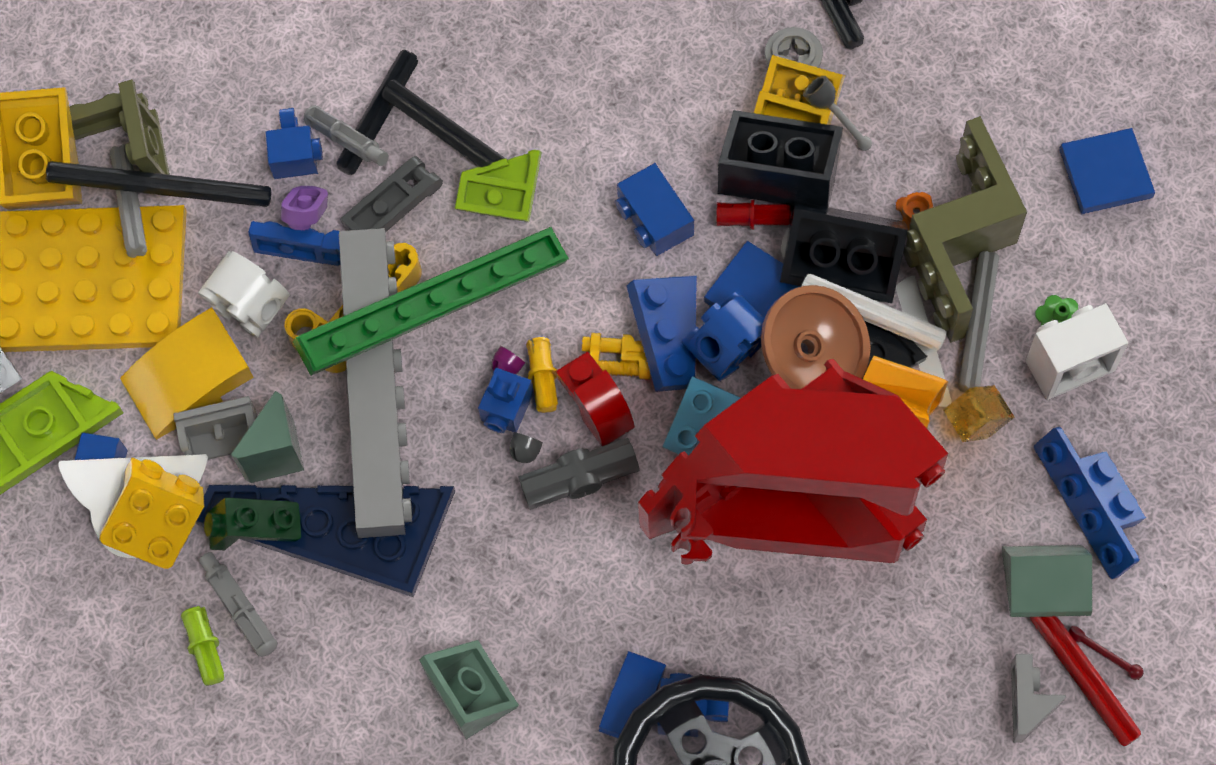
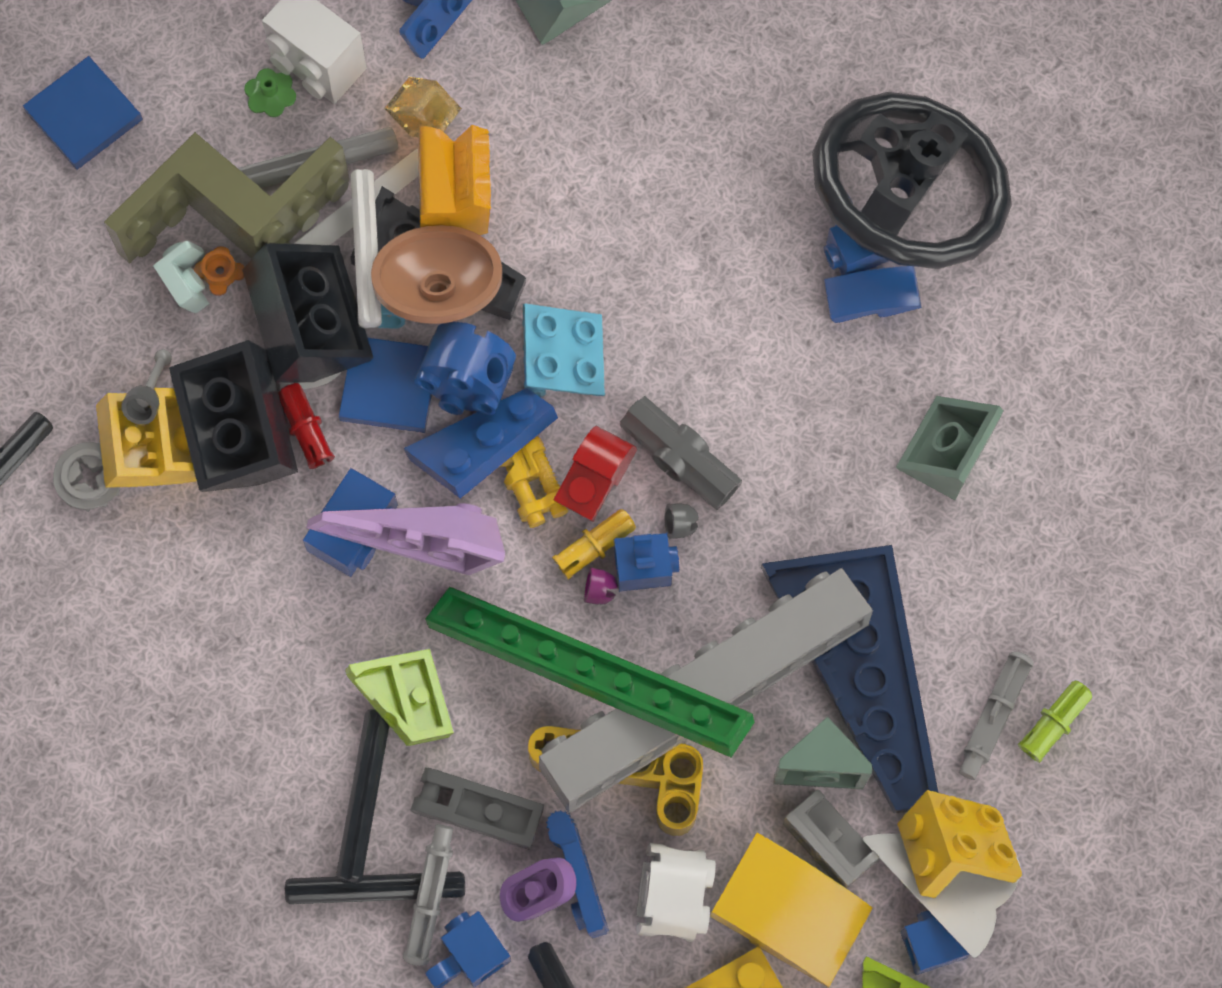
camera: 125 degrees left, 5 degrees up
(253, 520) = (920, 731): dark green bracket -> none
(603, 259) = (441, 536): none -> lavender wedge
(801, 474) = (599, 190): red piece -> none
(920, 175) = (180, 278): none -> light aqua bracket

